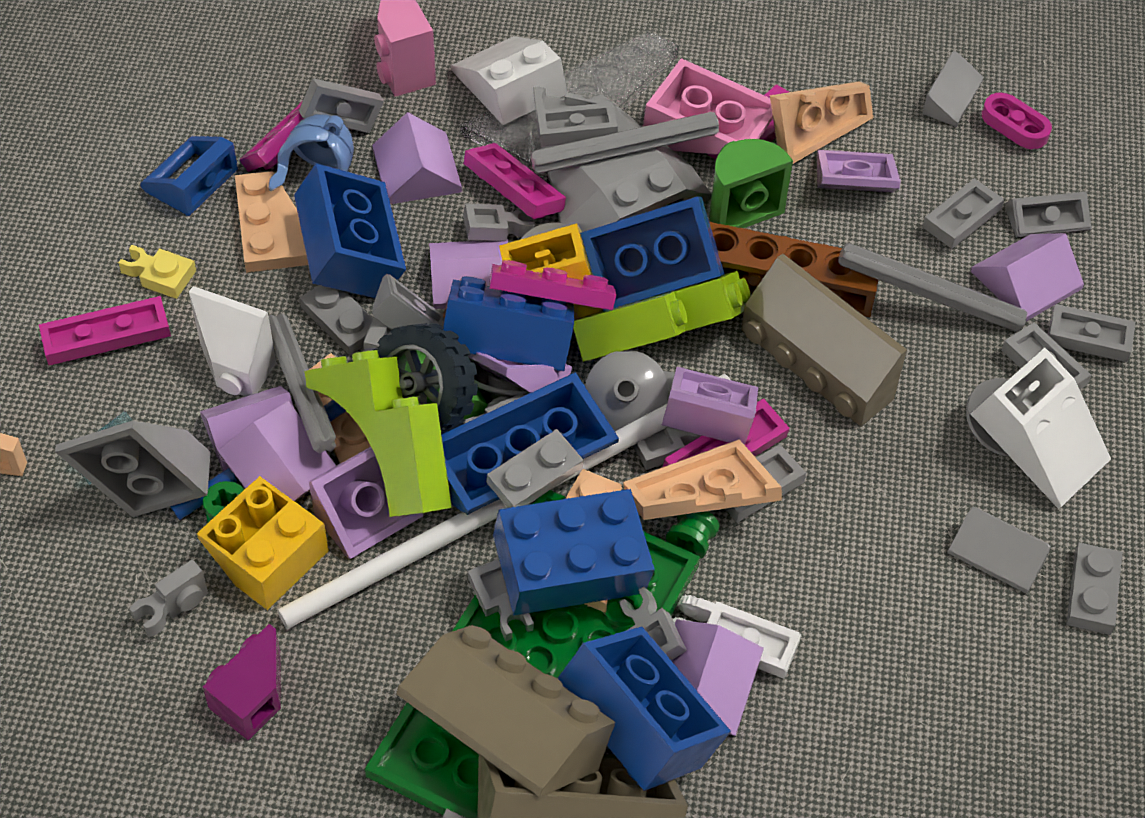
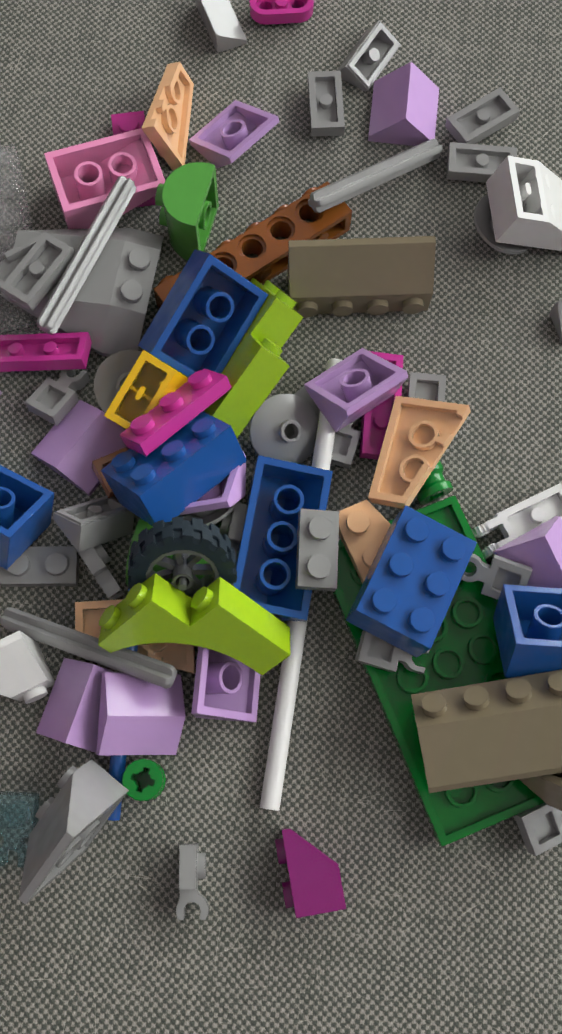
camera: 50 degrees left, 20 degrees up
(264, 542) = (199, 777): yellow slope -> none

